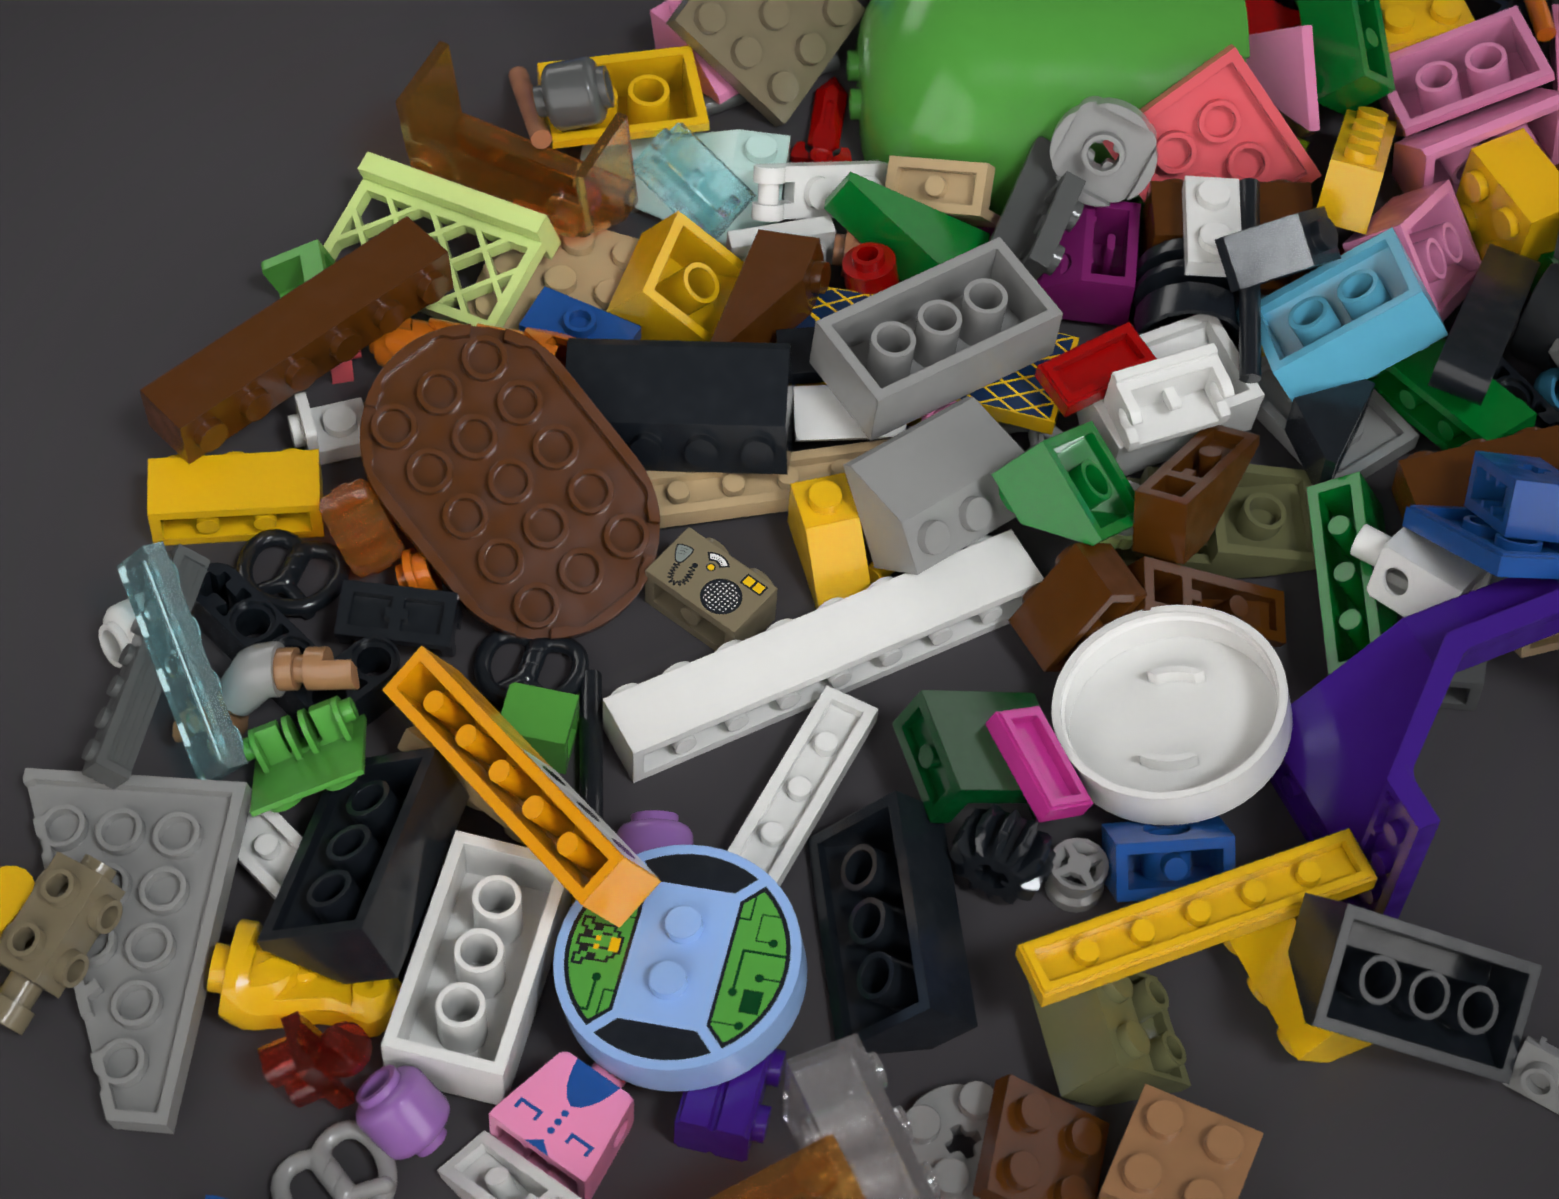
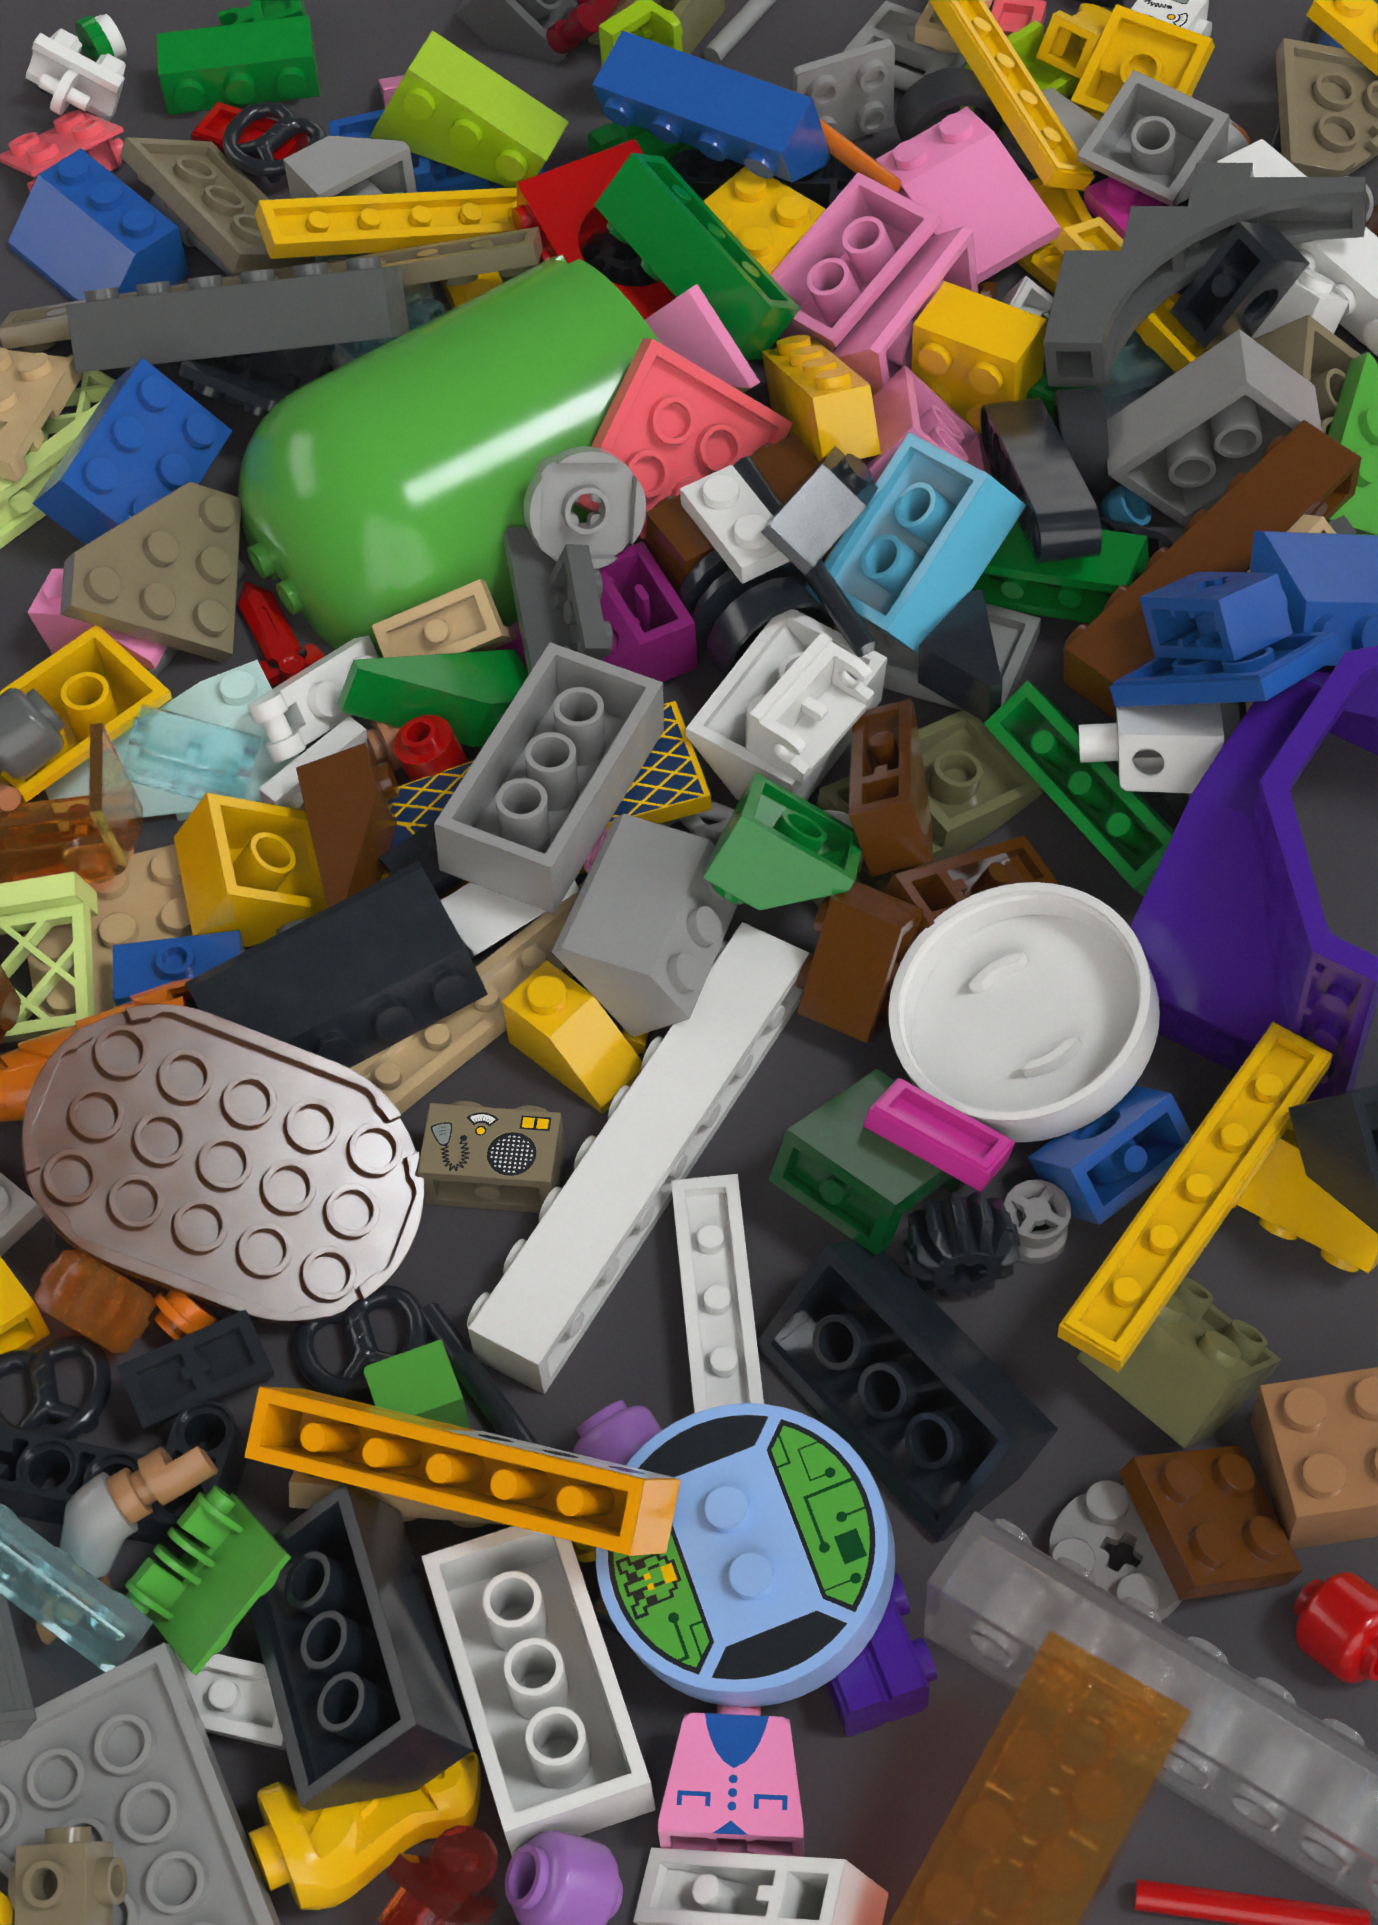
camera: 25 degrees left, 0 degrees up
(1084, 372) = (718, 721): red tile -> none

